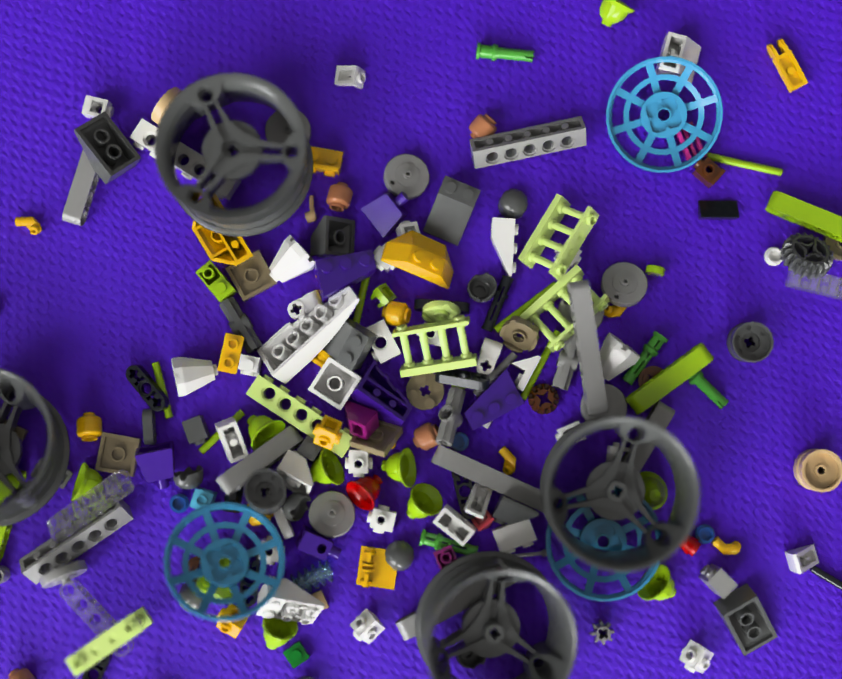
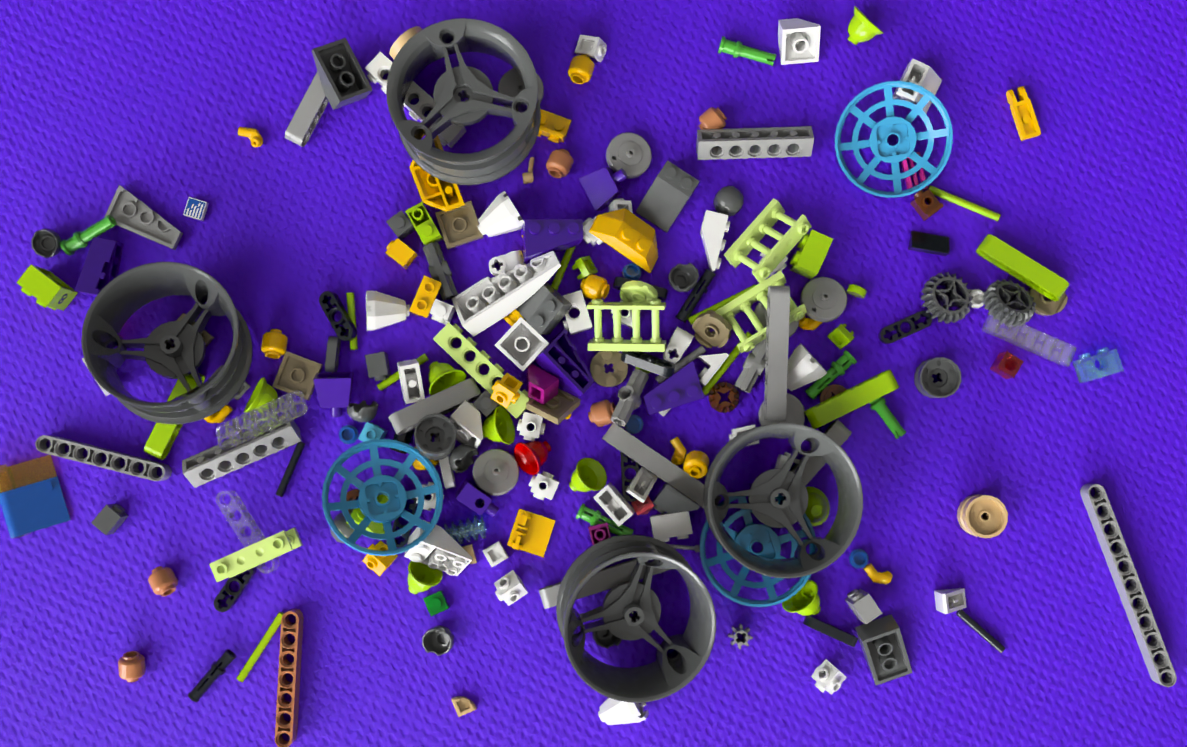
camera: 10 degrees right, 0 degrees up
(48, 508) = (219, 416): none -> yellow arm
(63, 574) = (223, 482): light grey wheel -> none
(93, 104) = (335, 29): white brick -> none
(127, 548) = (290, 469): none -> black piece
(193, 286) = (400, 225): none -> dark grey brick
(198, 314) = (401, 253): none -> yellow brick
(333, 237) = (546, 201): dark grey slope -> none
(343, 99) = (580, 69): none -> yellow head
(346, 595) = (495, 554): none -> white tile
(399, 555) = (554, 524): dark grey hair -> none
(401, 467) = (572, 438): lime hat -> none
(430, 291) = (631, 271): none -> blue plate
(528, 470) = (696, 464): none -> yellow head
(553, 33) = (798, 41): none -> white slope
(603, 242) = (811, 254): none -> lime brick
(648, 317) = (841, 336): none -> lime tile
(690, 545) = (842, 566): red cone -> none
(690, 610) = (830, 630): none -> black beam
(717, 285) = (890, 328): none -> black beam
(751, 257) = (940, 300): none -> dark grey gear
(815, 317) = (1006, 365): none -> clear red brick

